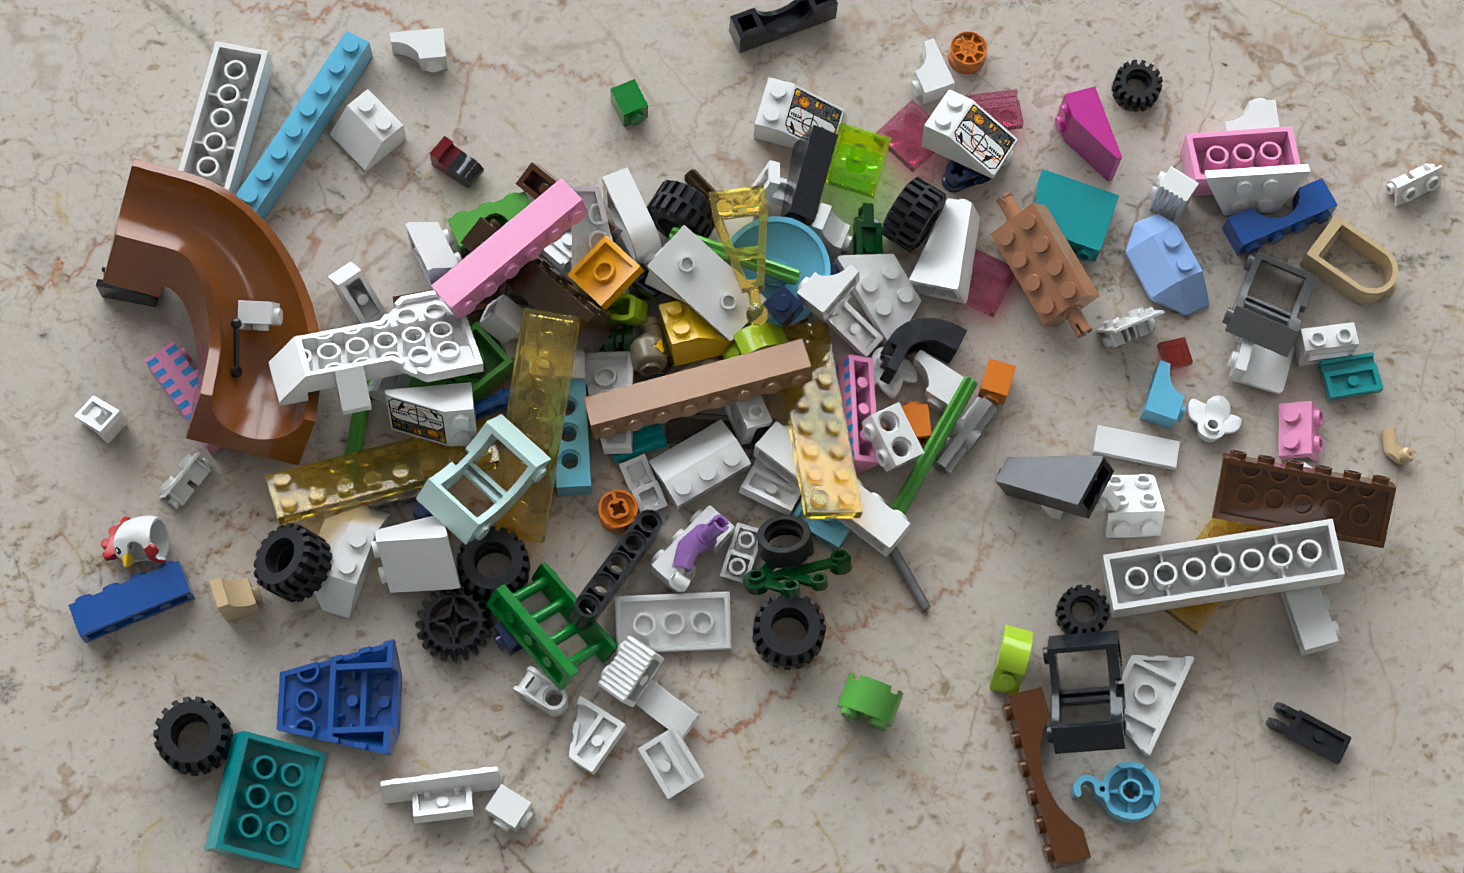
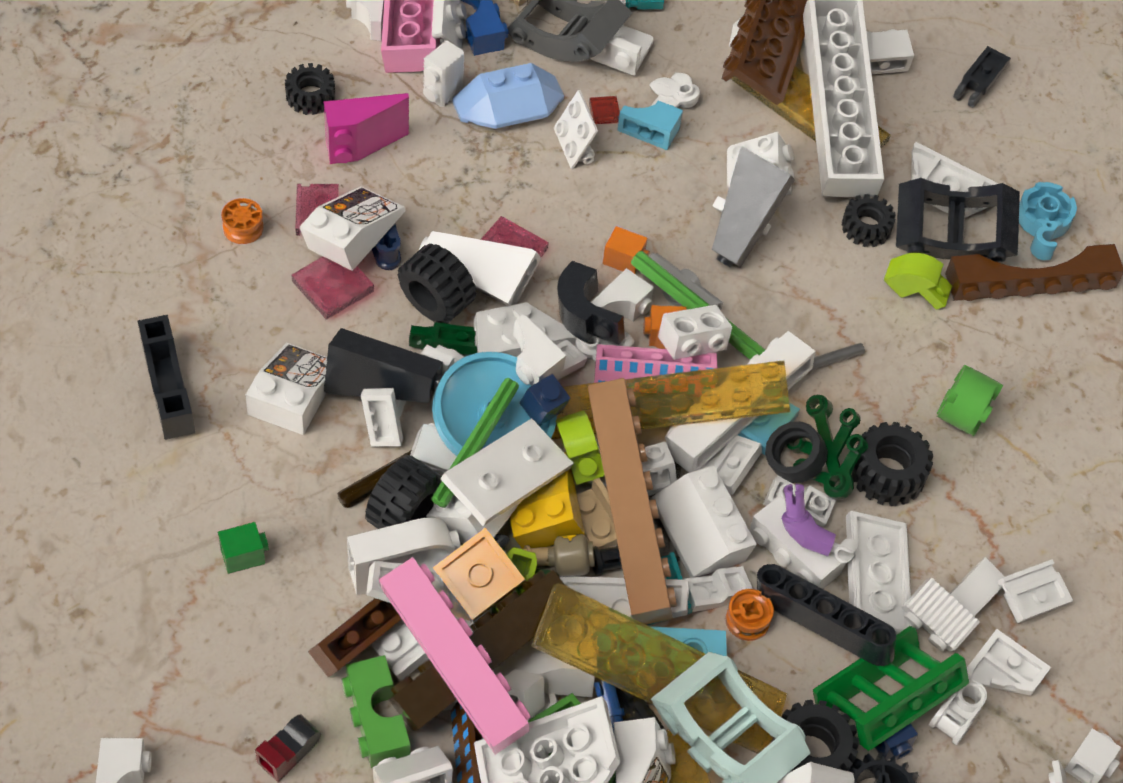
camera: 85 degrees left, 15 degrees down
(740, 204) = (417, 423): clear yellow plate -> none
(858, 160) = (360, 316): clear neon green brick -> none
(933, 78) = (262, 252): white arch -> none
(1044, 264) = (507, 184): nougat brick -> none
(1079, 211) = (447, 161): teal brick -> none
(1136, 447) = (699, 155): white tile -> none
(1300, 430) = (693, 31): bright pink bracket -> none

